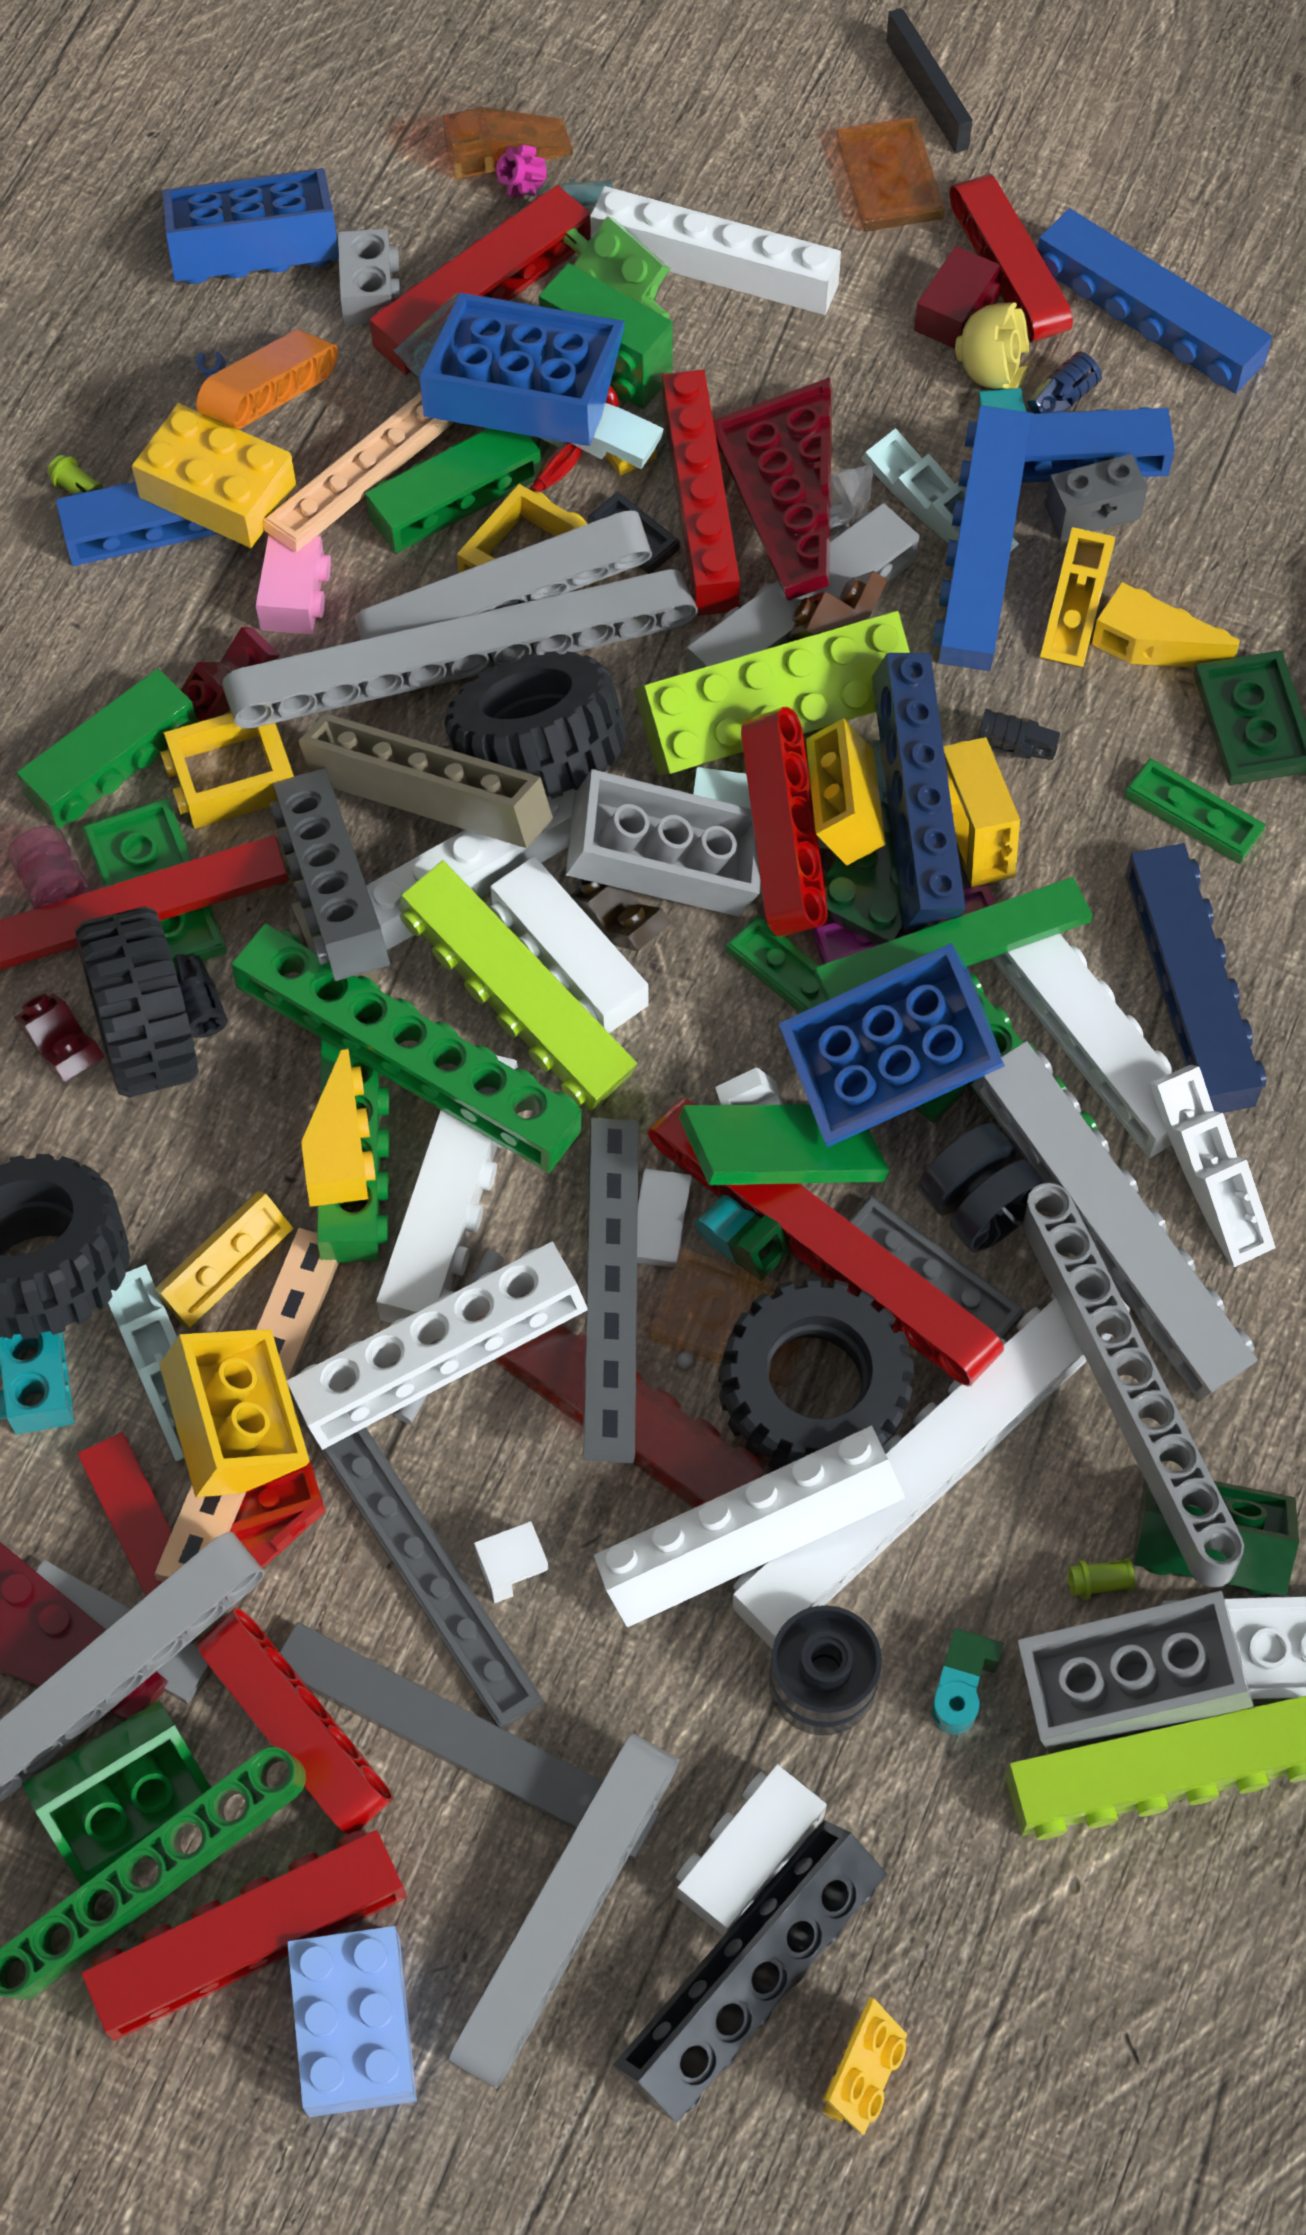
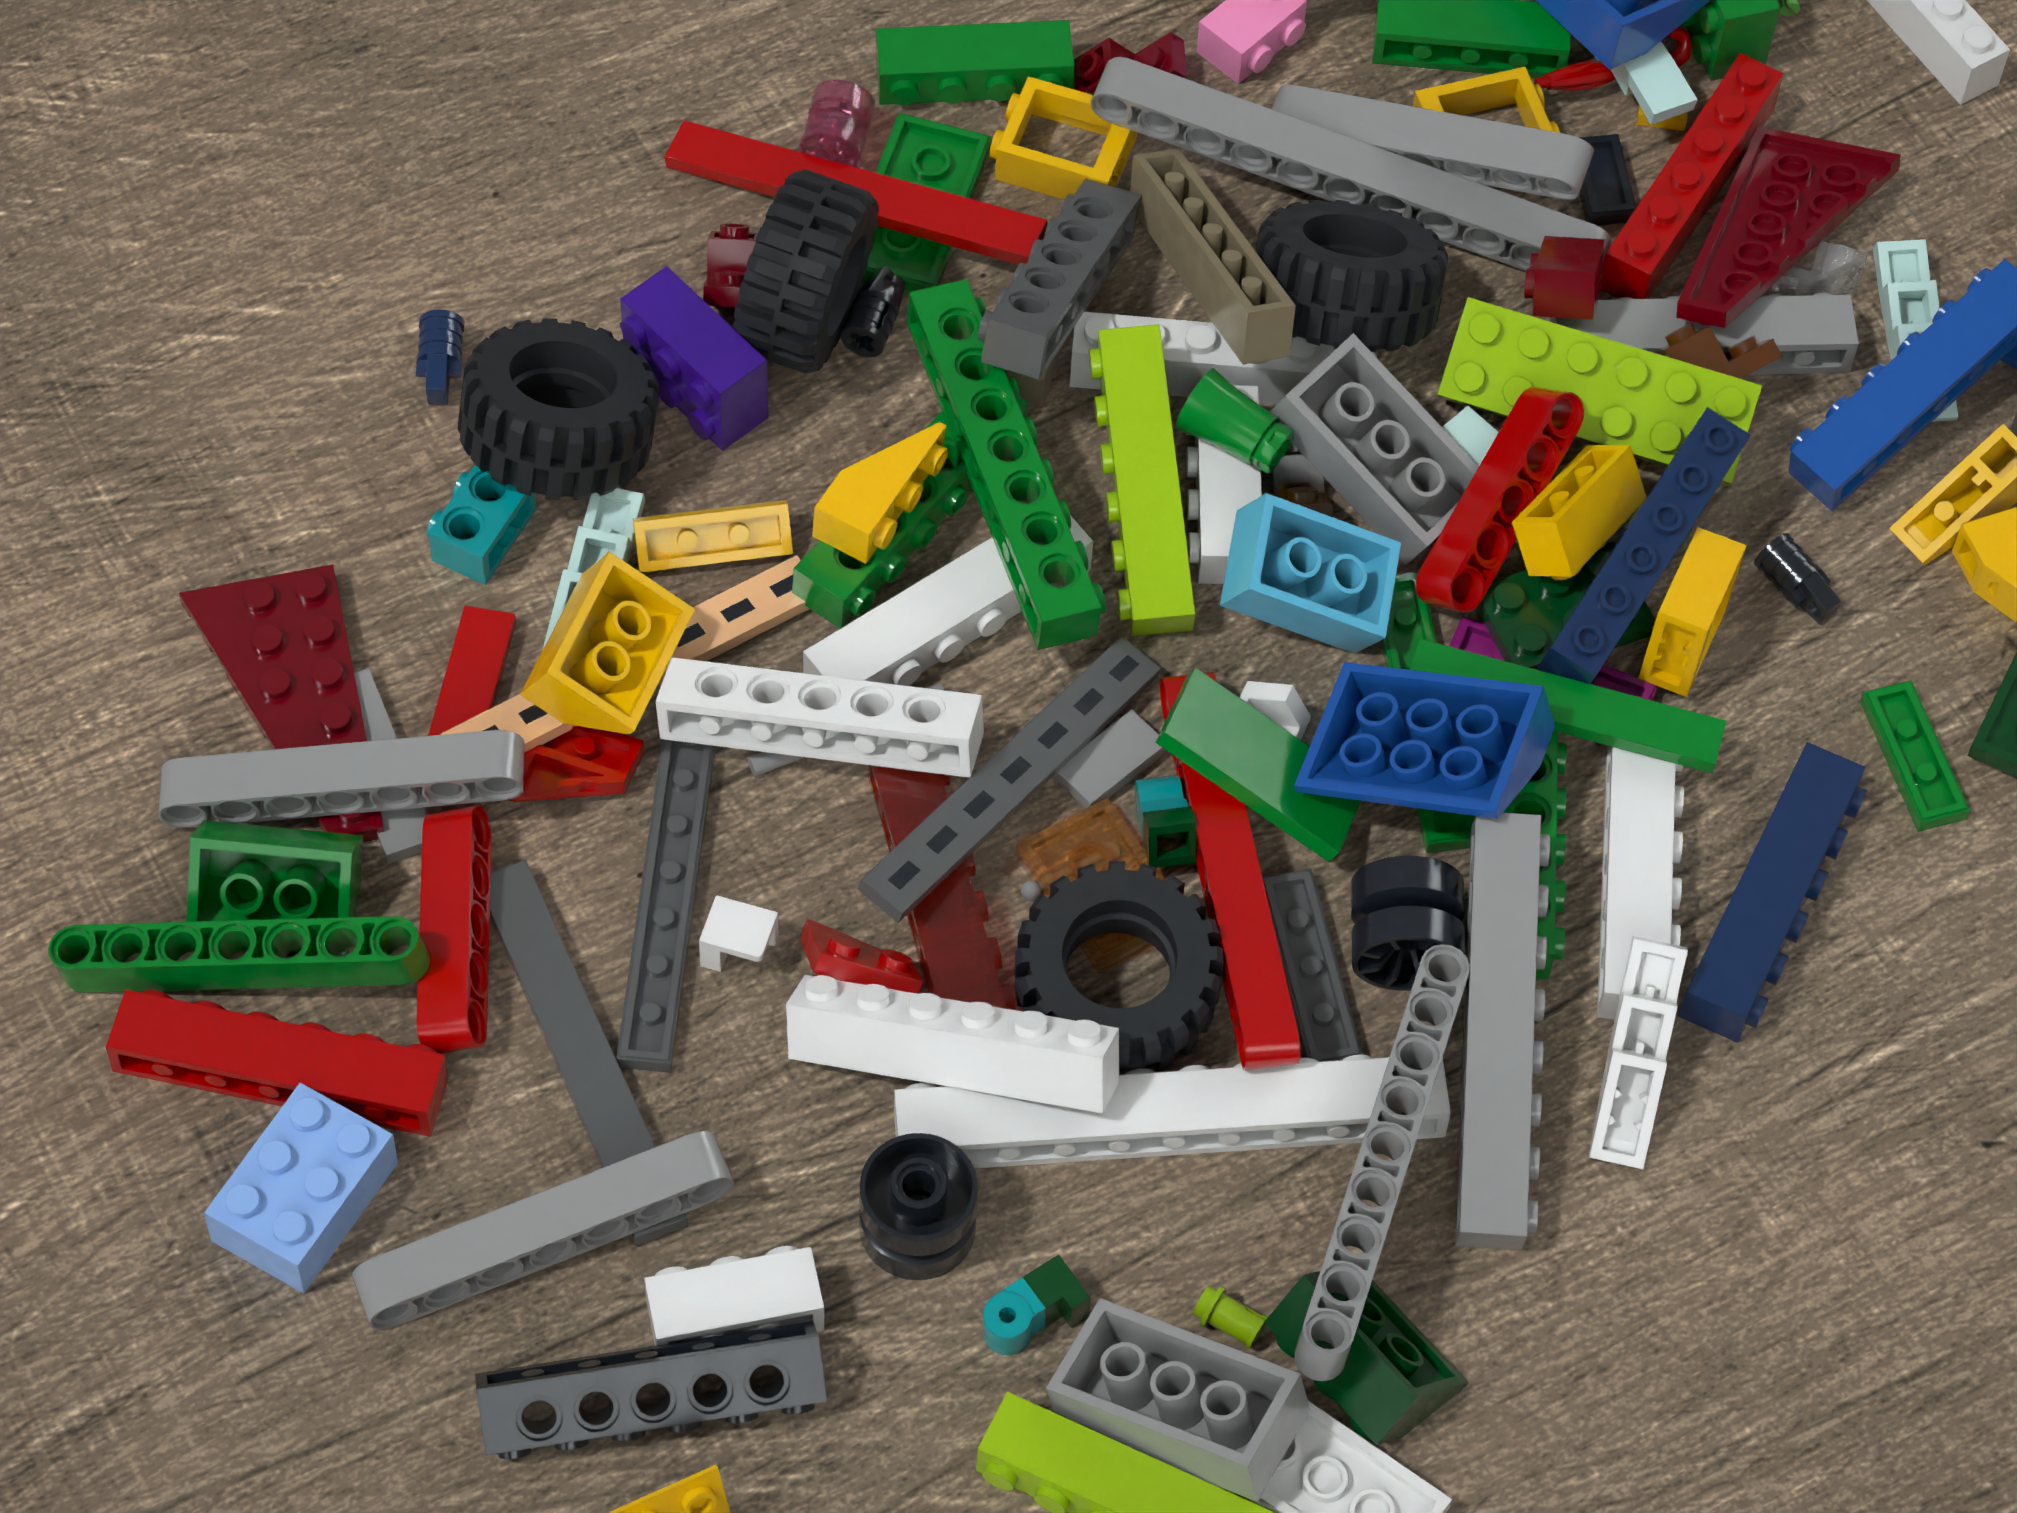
camera: 35 degrees right, 5 degrees down
(99, 1125) = (696, 358): none -> dark purple brick
(551, 896) = (1234, 423): none -> green plant
(616, 1514) = (855, 961): none -> red wing
(688, 622) = (1565, 277): none -> dark red brick
(697, 973) = (1310, 573): none -> medium azure brick

